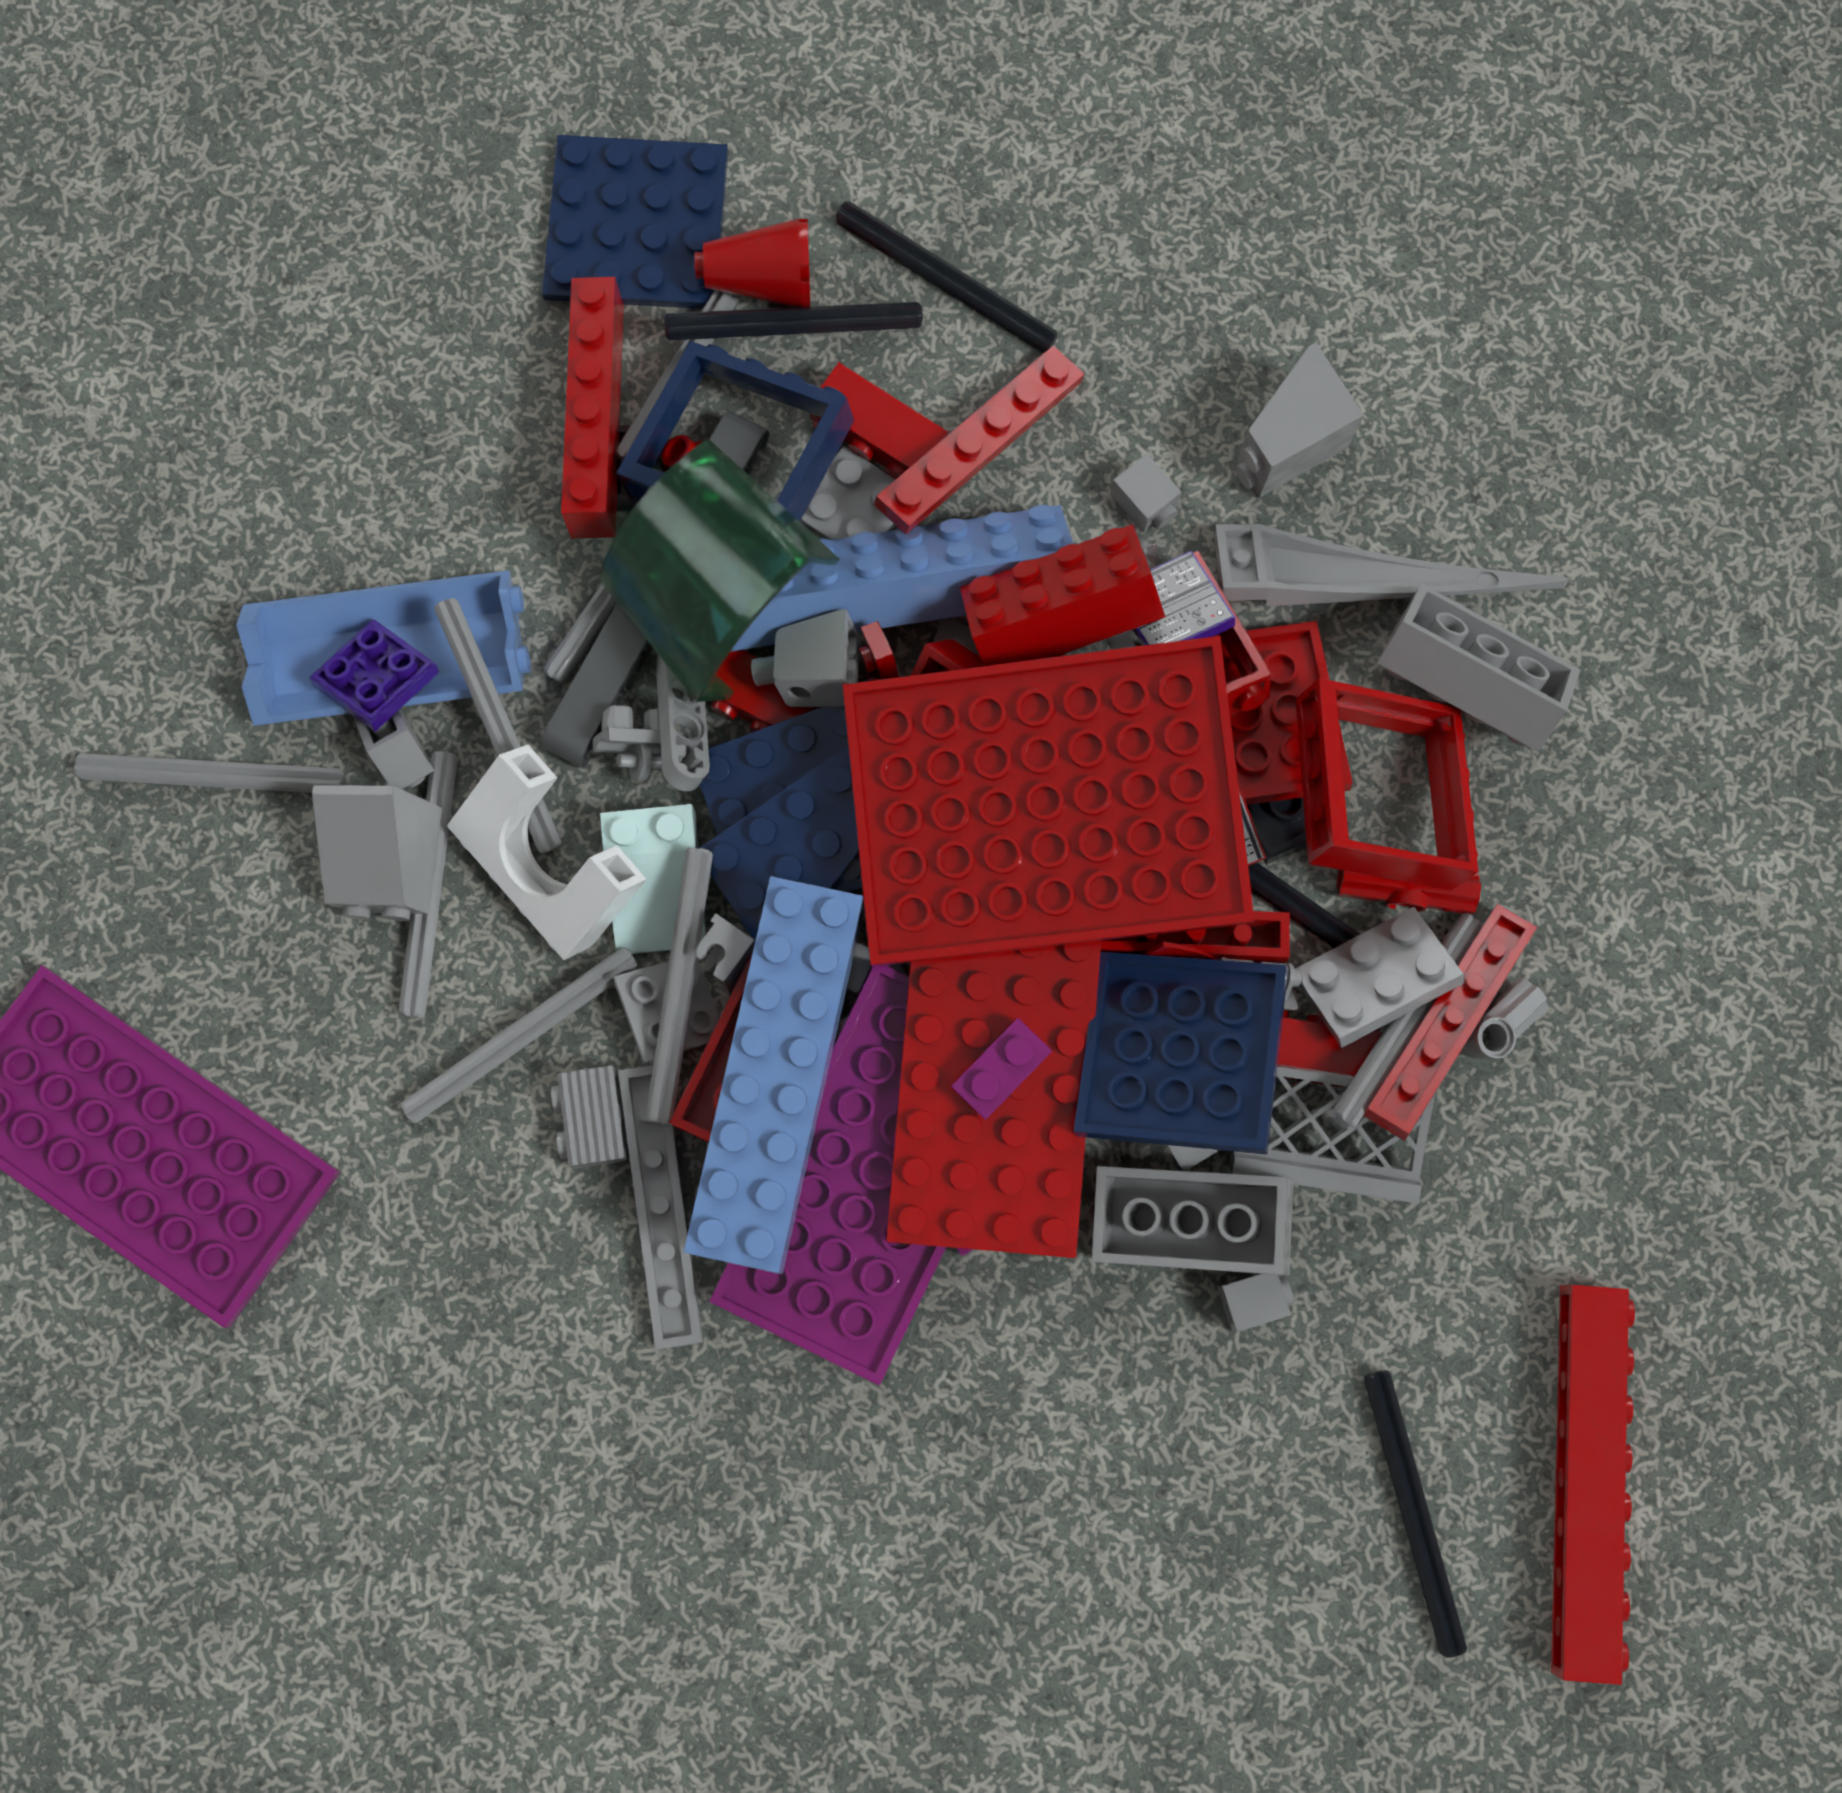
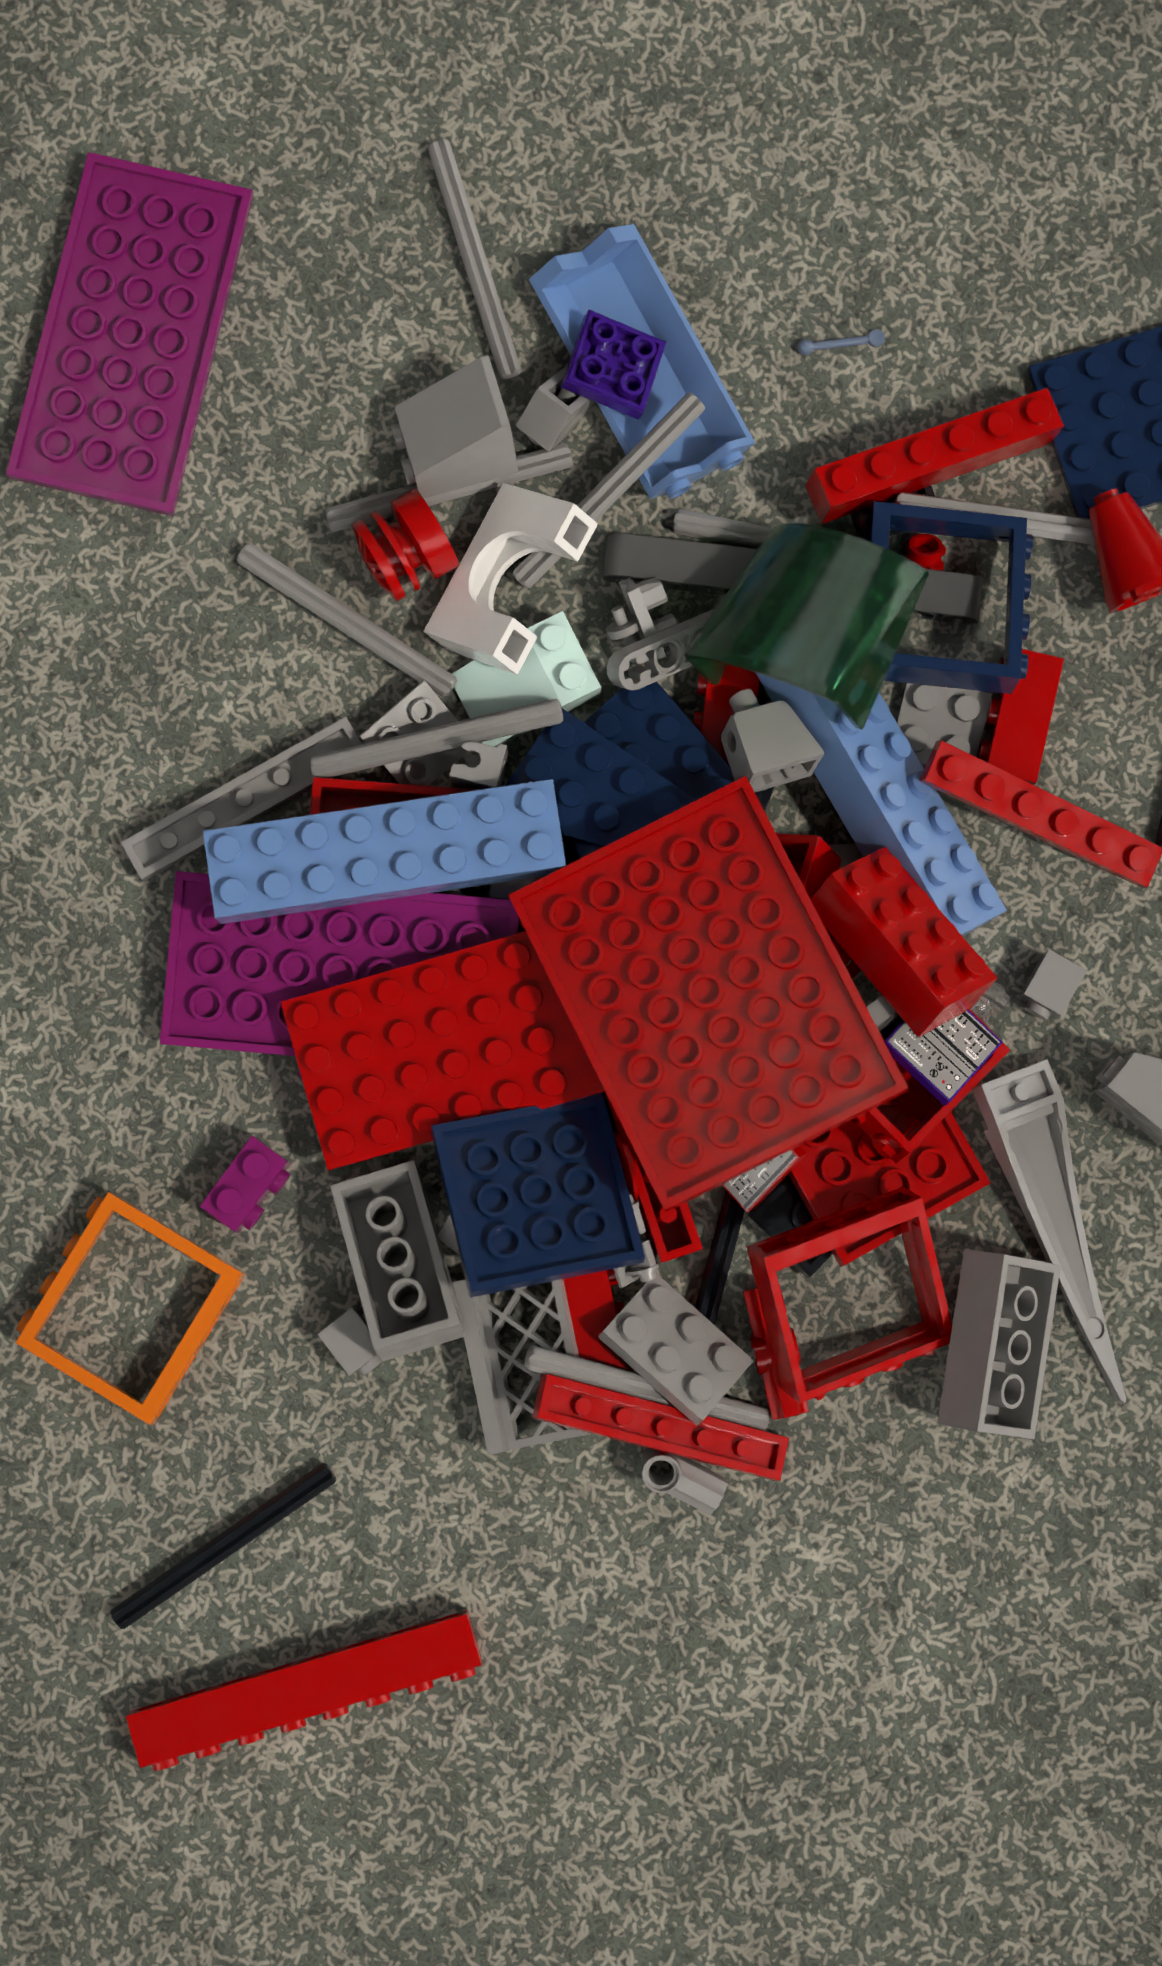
camera: 65 degrees right, 5 degrees up
(454, 426) = (874, 339): none -> sand blue hinge
(468, 935) = (405, 545): none -> red wheel
(591, 1117) = (297, 709): light grey brick -> none
(792, 320) = (1090, 603): black axle -> none
(877, 654) = (793, 801): red plate -> none
(1001, 1068) = (462, 1043): magenta plate -> none
(1056, 1349) = (246, 1184): none -> magenta brick
(1087, 1586) = (183, 1356): none -> orange window

